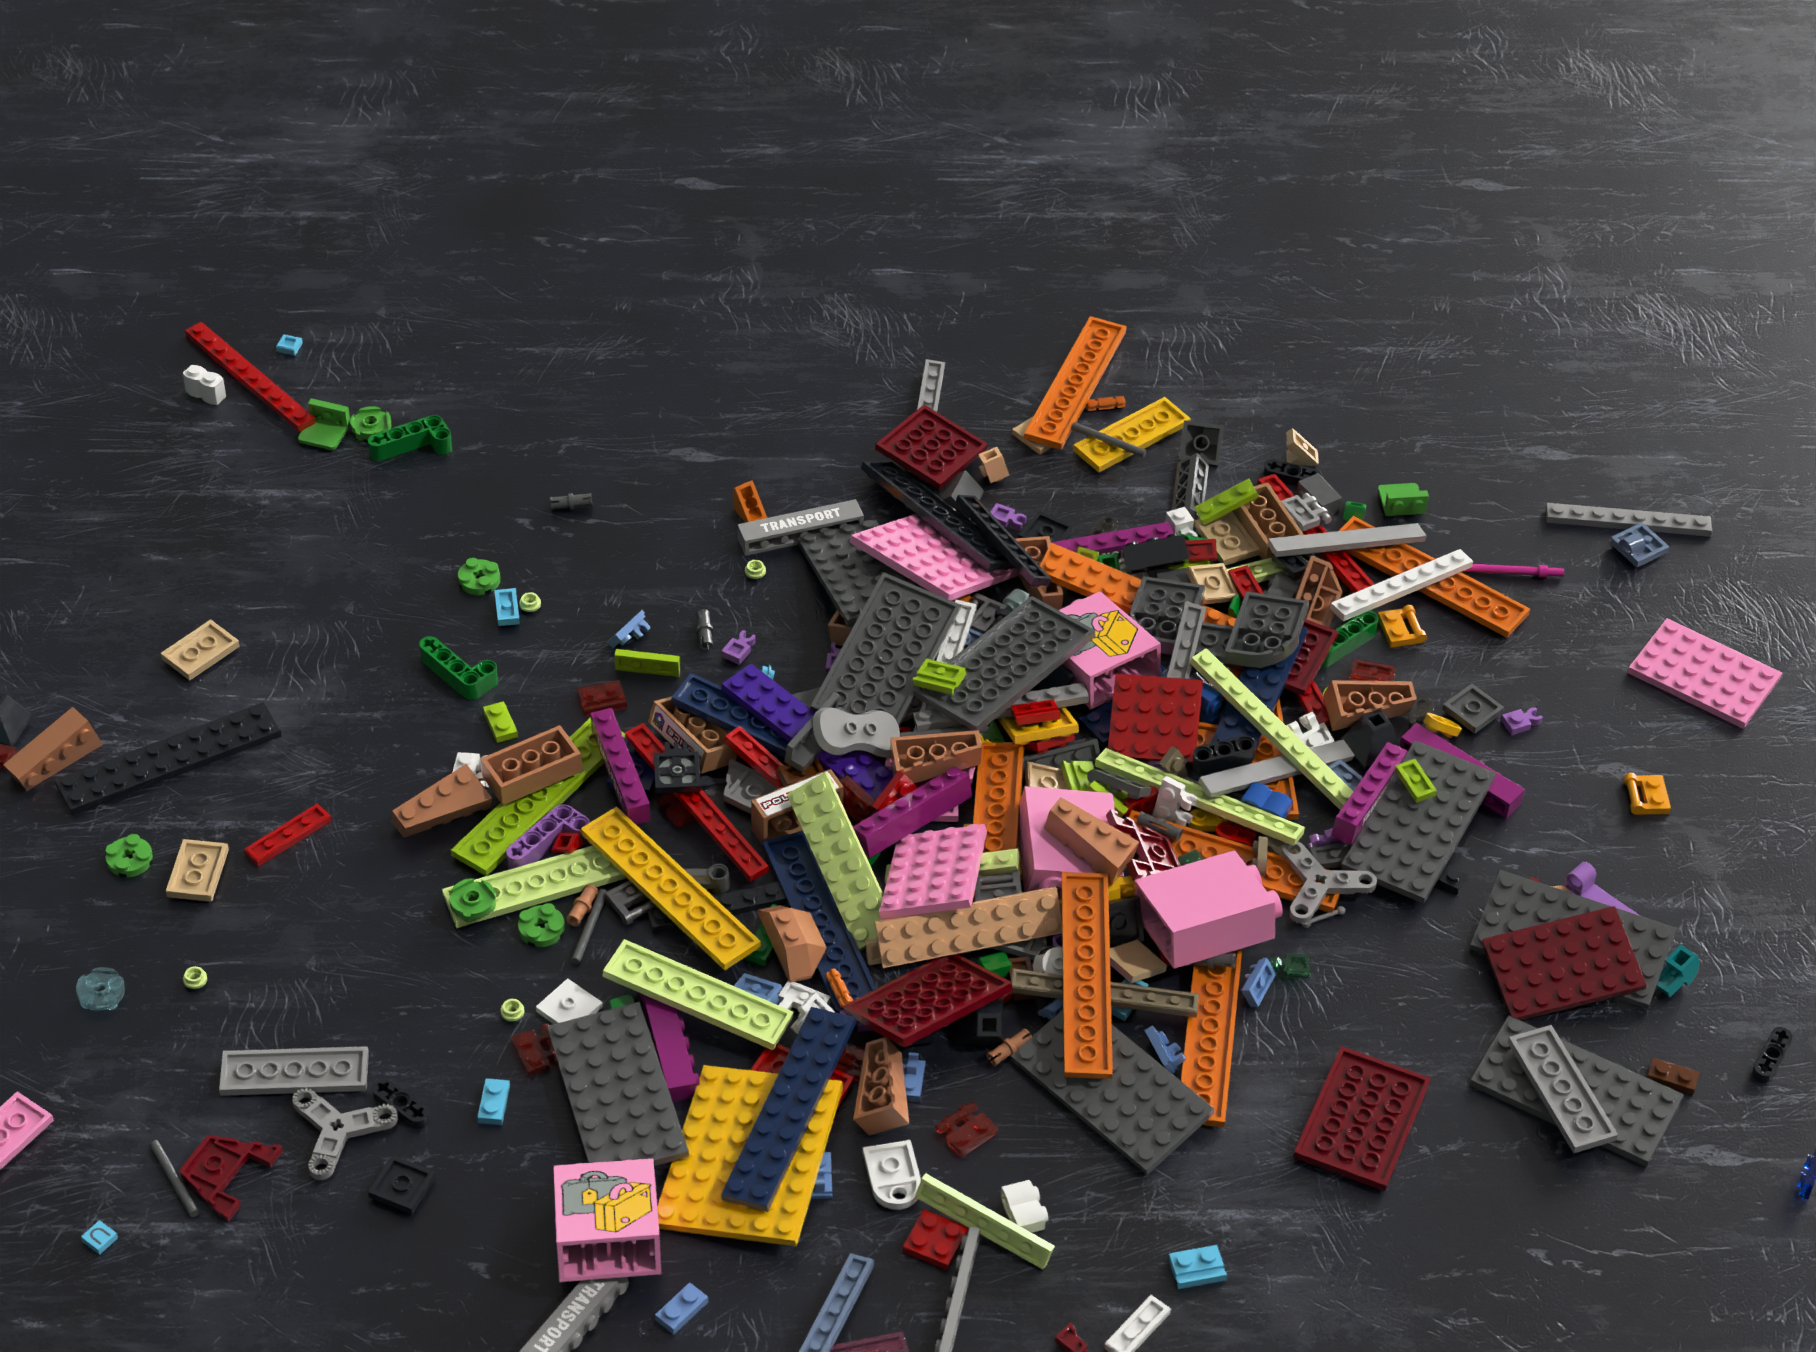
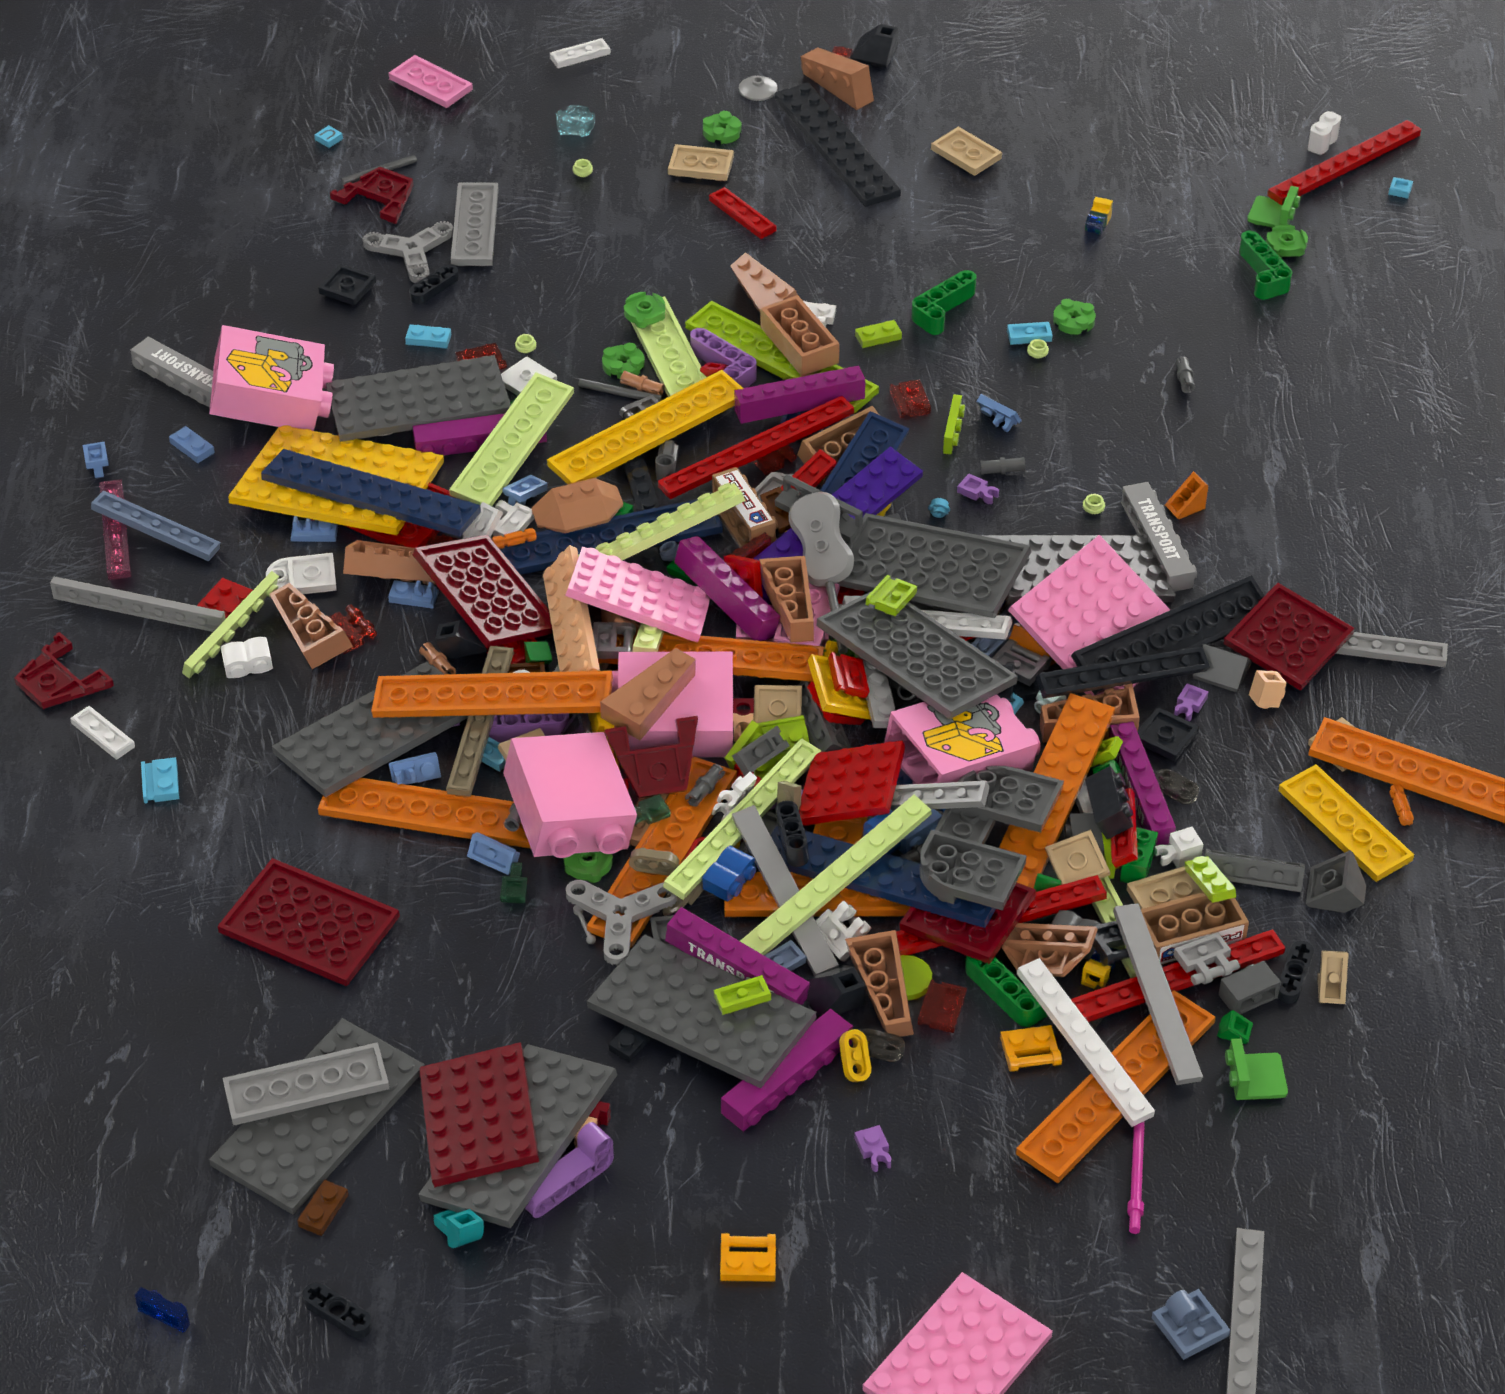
camera: 95 degrees right, 0 degrees up
(50, 829) = (758, 88): none -> light grey dish
(324, 552) = (1099, 215): none -> leg
(677, 770) = (787, 424): black piece -> none
(984, 1150) = (313, 631): none -> nougat wedge
(1109, 439) = (1323, 792): dark grey bar -> none
(1473, 708) = (889, 1097): dark grey plate -> none

